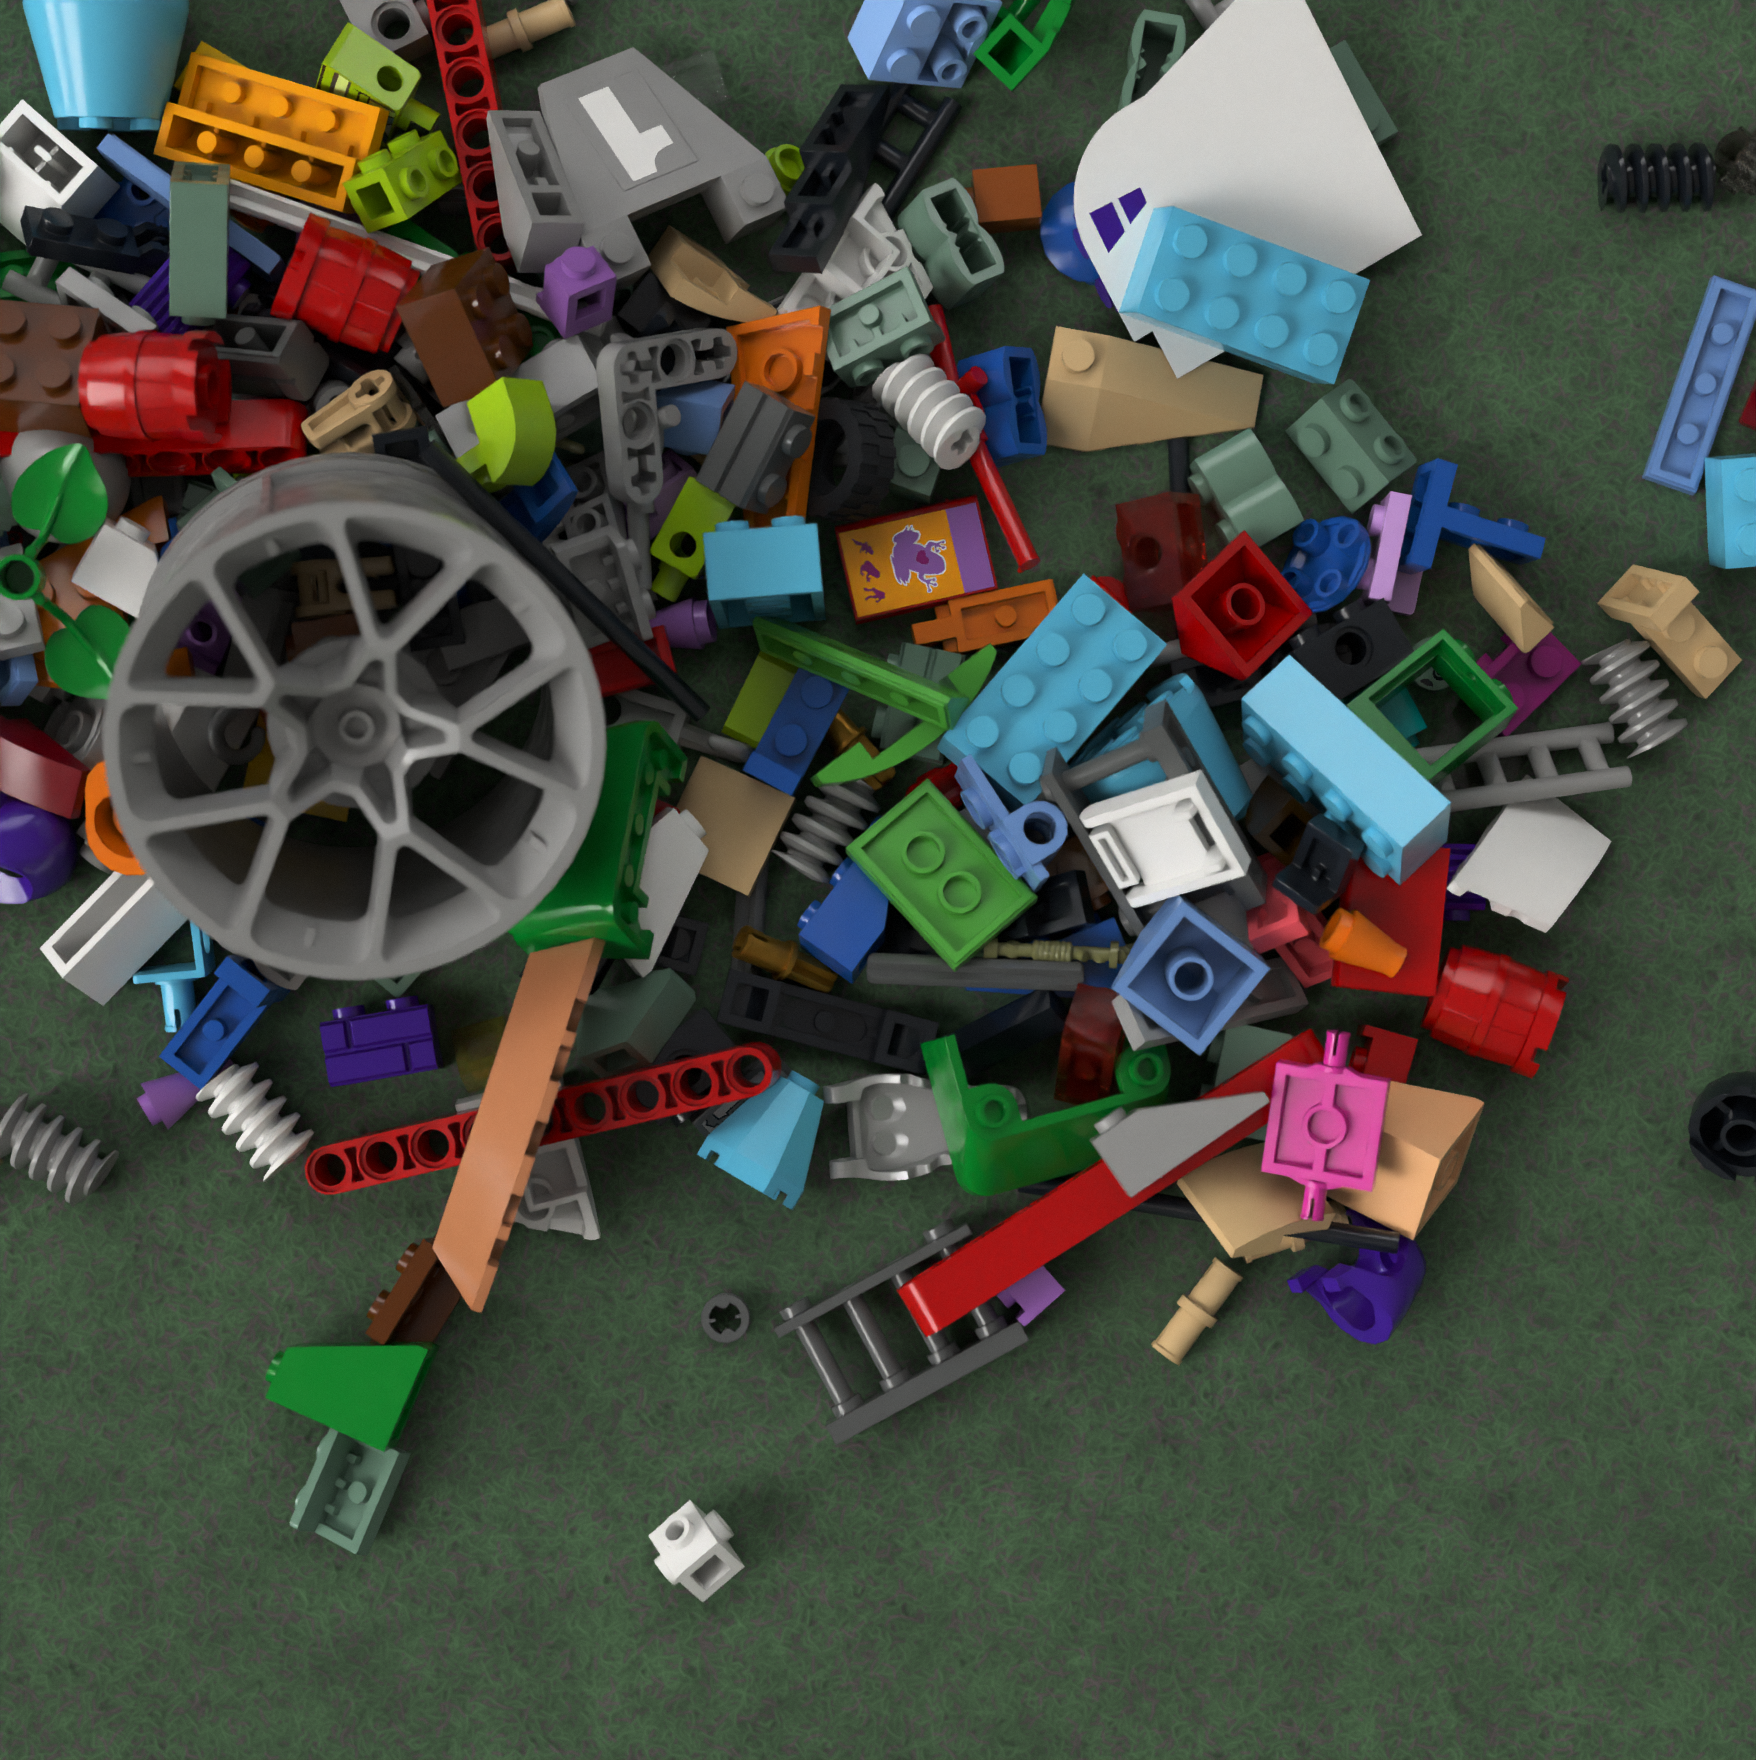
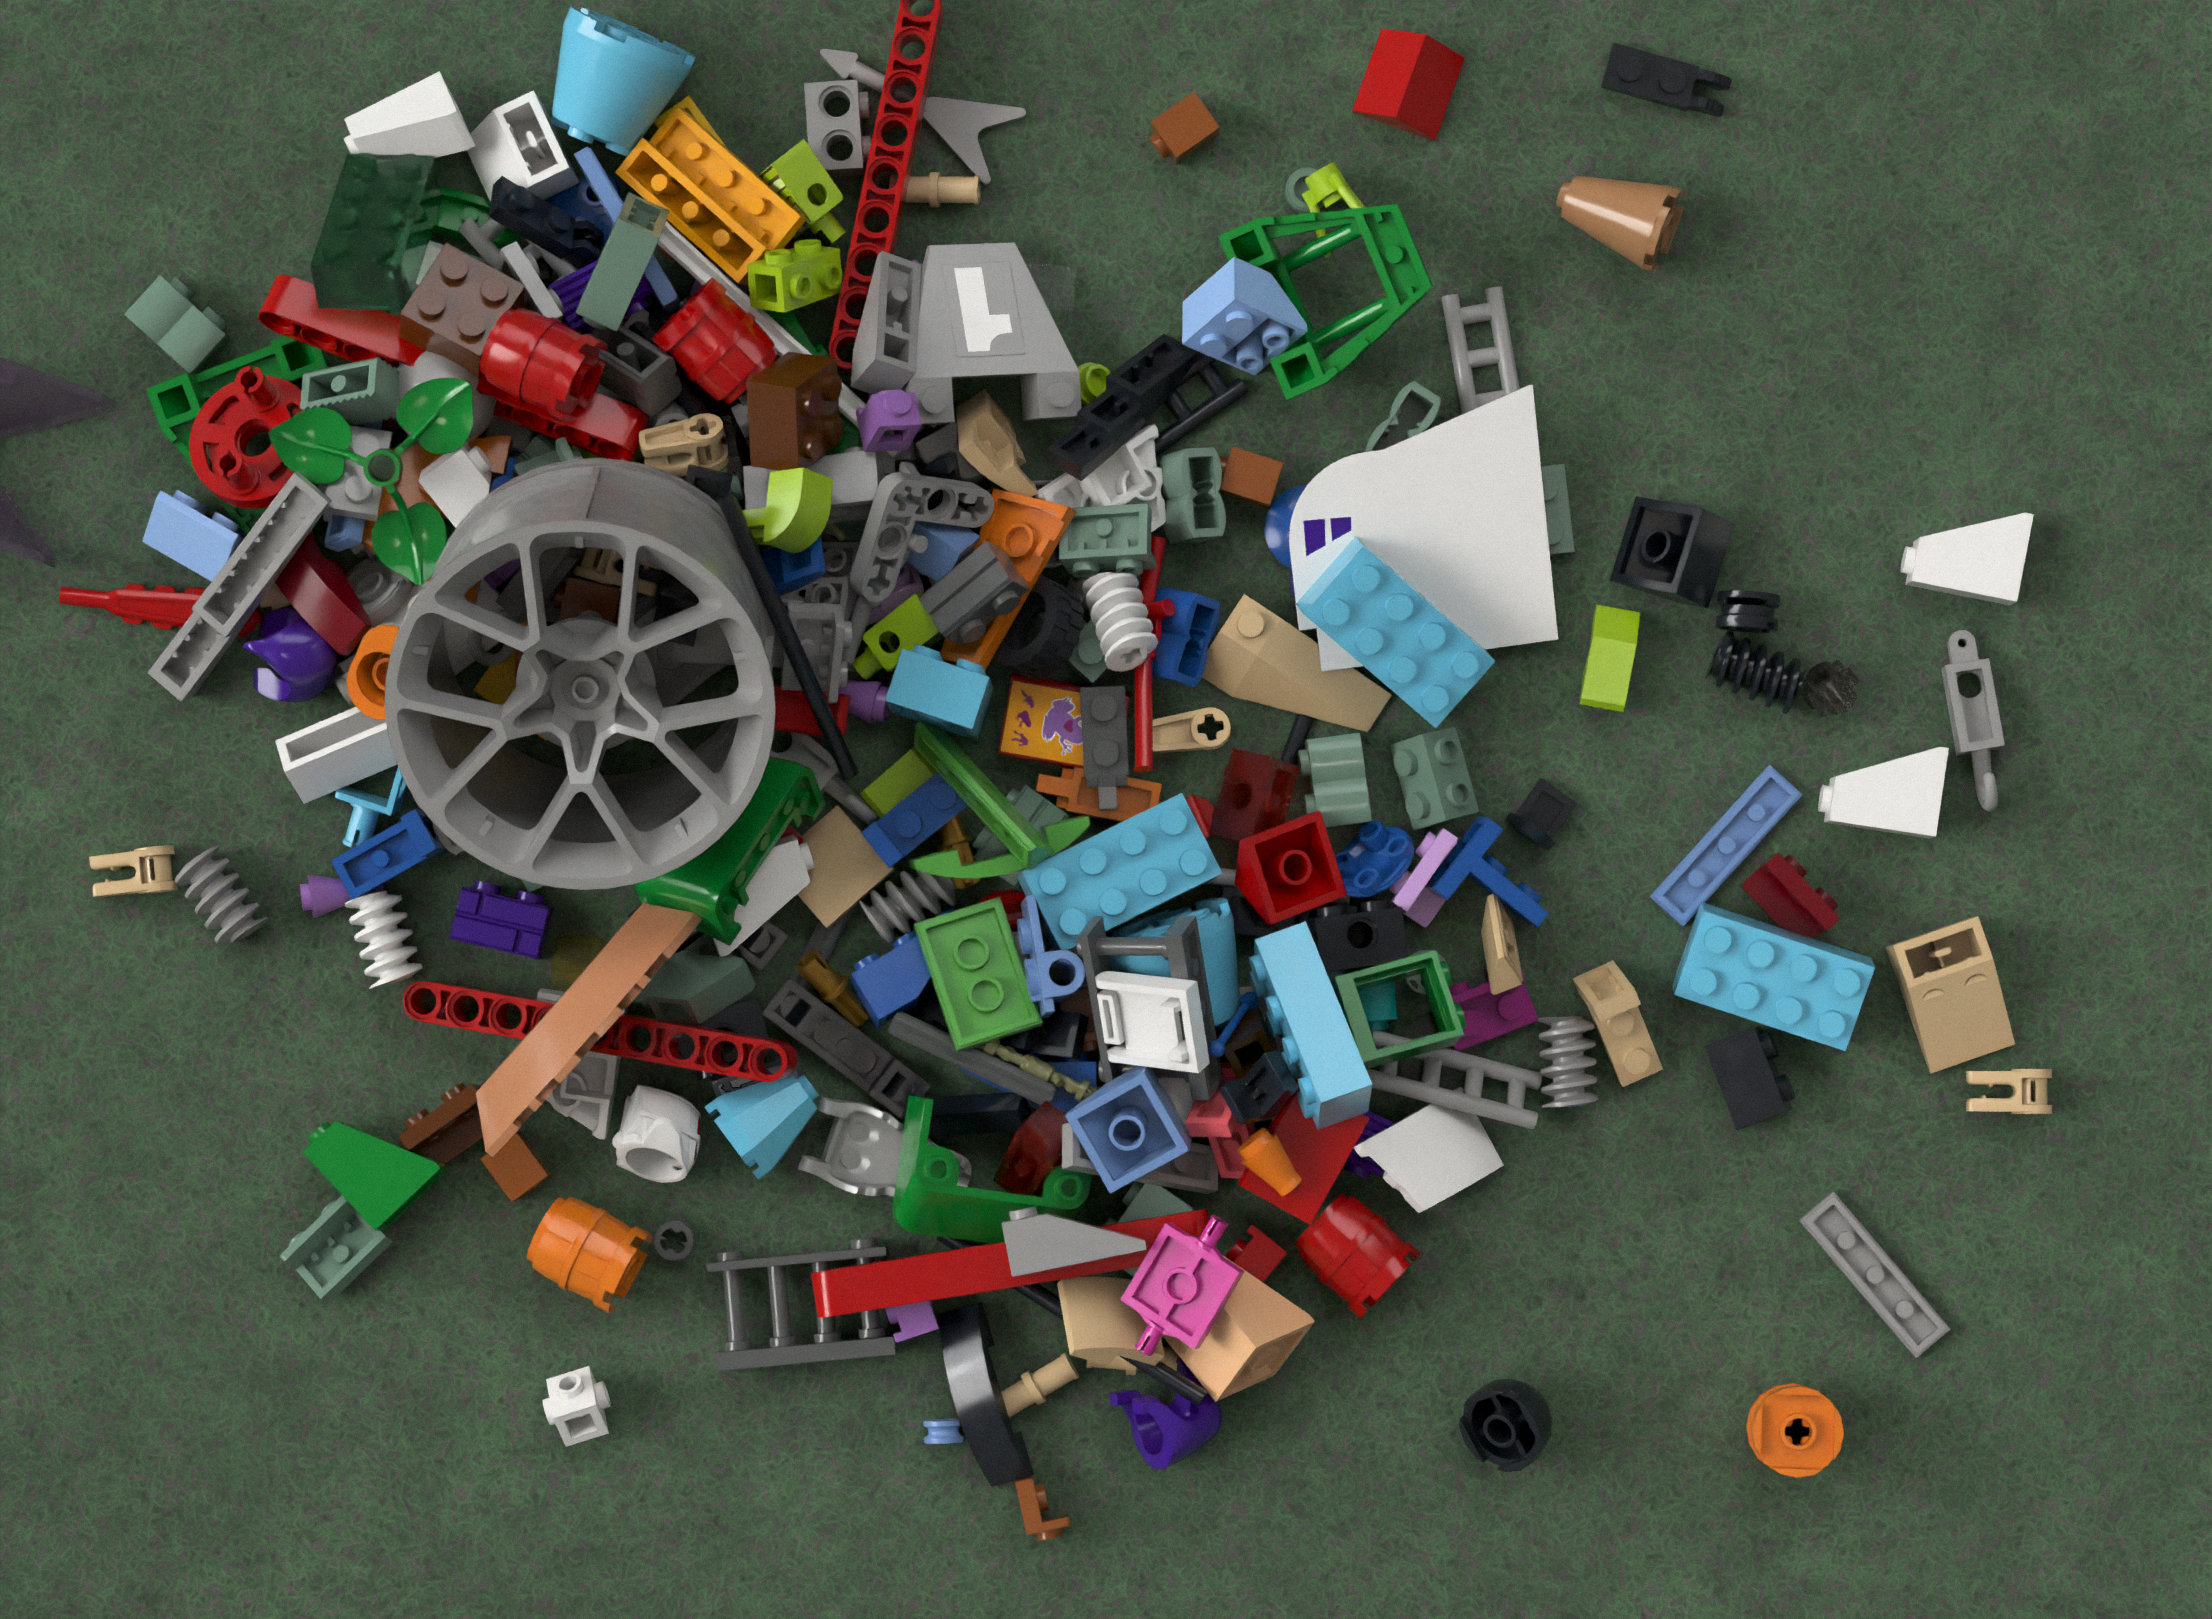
camera: 25 degrees right, 0 degrees up
(514, 1311) = (517, 1167): none -> dark orange brick
(634, 1372) = (588, 1251): none -> orange piece
(657, 1208) = (658, 1135): none -> white piece
(970, 556) = (1105, 741): none -> dark grey hinge
(1050, 511) = (1181, 733): none -> tan piece
(1117, 1402) = (943, 1431): none -> medium blue bush
(1141, 1347) = (978, 1396): none -> black slope
(1251, 1440) = (1032, 1503): none -> dark orange bracket
(1257, 776) = (1248, 1001): none -> blue hinge
(1485, 436) = (1541, 814): none -> black tile
(1490, 231) = (1610, 658): none -> lime slope
(1506, 84) = (1672, 551): none -> black slope
(1619, 114) = (1746, 616): none -> black wheel

